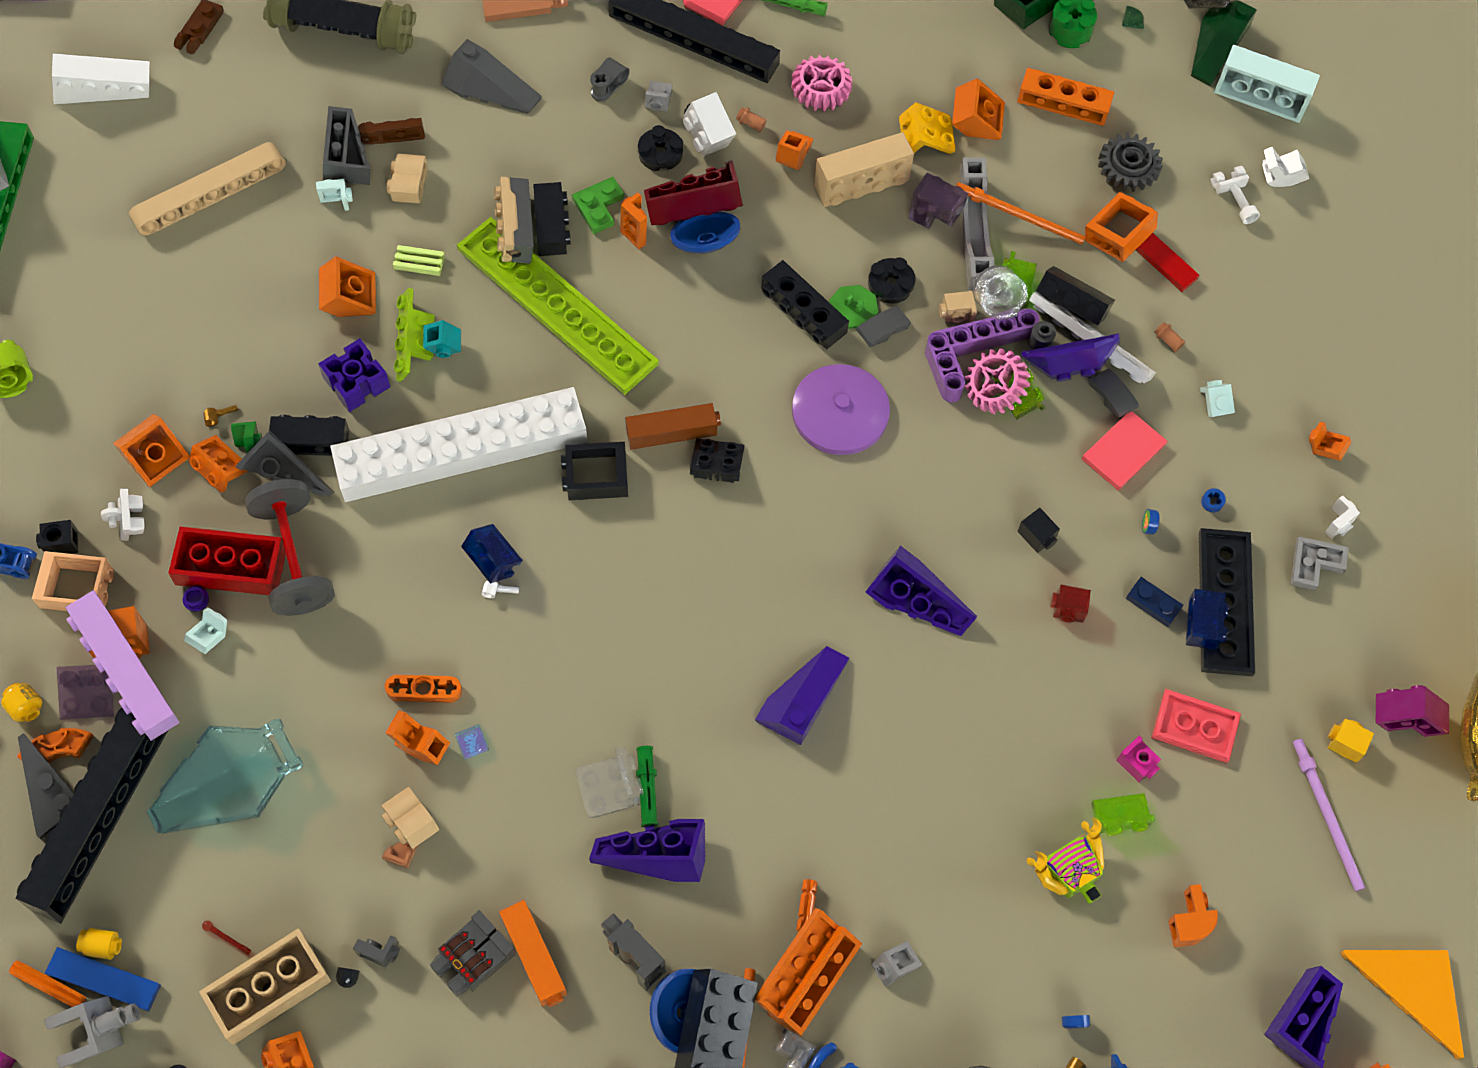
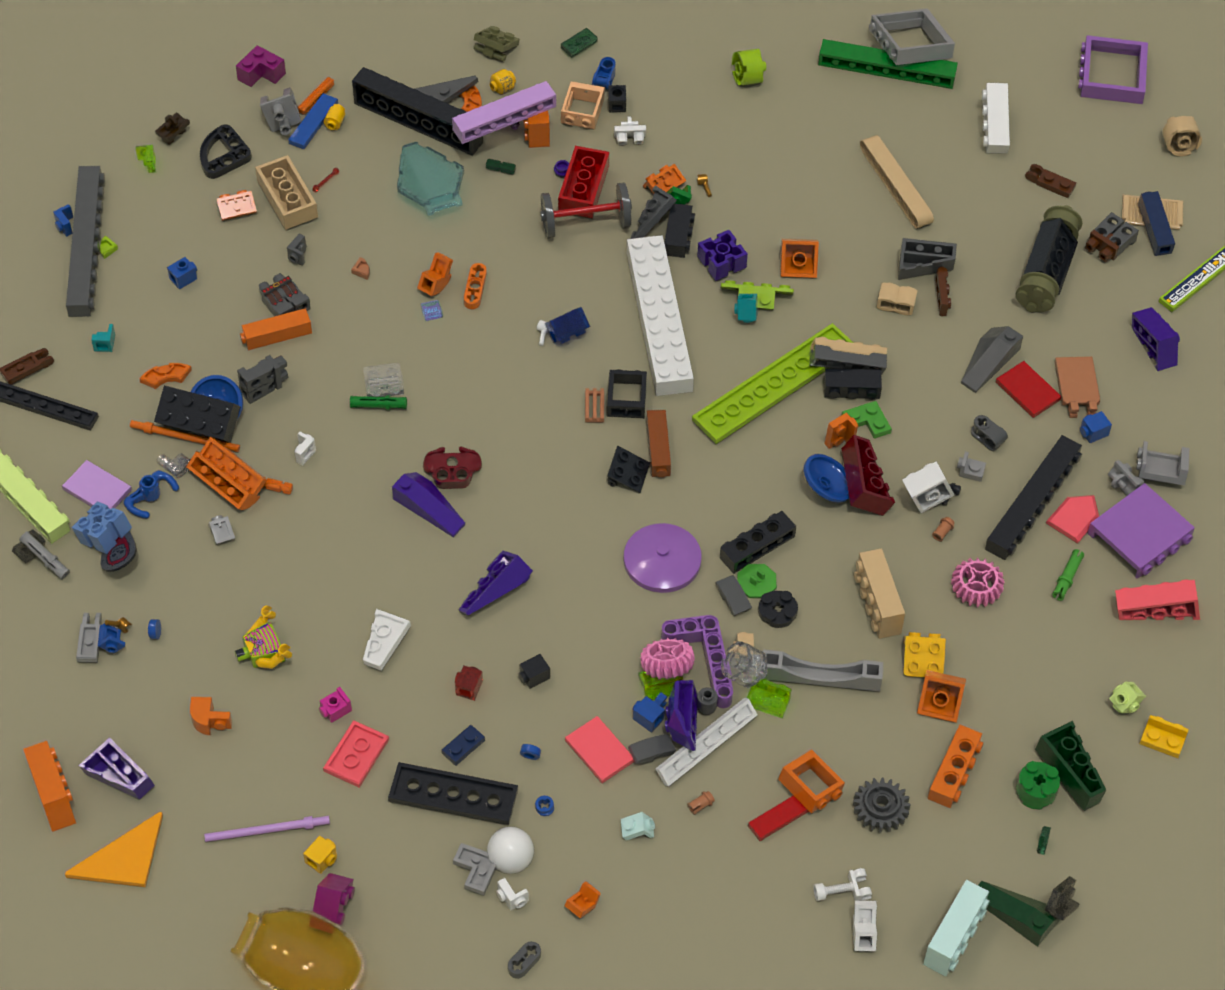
camera: 100 degrees right, 10 degrees down
(151, 449) = (678, 145): orange slope -> none
(191, 689) = (497, 165): none -> dark green piece
(207, 632) = (534, 172): light aqua bracket -> none
(334, 190) = (886, 258): light aqua bracket -> none
(347, 977) = (286, 236): black hinge -> none
(409, 817) = (381, 269): tan brick -> none
(421, 257) = (827, 292): yellowish green tile -> none
(533, 44) = (1028, 389): none -> red tile
(632, 501) = (594, 393): none -> nougat tile
(659, 137) = (913, 456): black plate -> none
(664, 852) = (331, 402): dark purple wedge -> none
(744, 692) = (436, 463): none -> dark red piece
(747, 872) = (305, 448): none -> white bracket
(793, 149) = (902, 549): orange brick -> none
(936, 200) = (842, 638): clear purple brick -> none
(978, 195) = (845, 669): orange bar -> none
(1027, 716) = (385, 637): none -> white wing
(1067, 398) = (649, 712): none -> blue brick
(1075, 295) = (744, 731): black brick -> none
(1123, 814) = (297, 688): clear neon green bracket -> none
(1206, 619) = (434, 764): clear blue brick -> none
(1283, 528) = (510, 850): none -> white piece
(1412, 497) = (521, 956): none -> dark grey beam

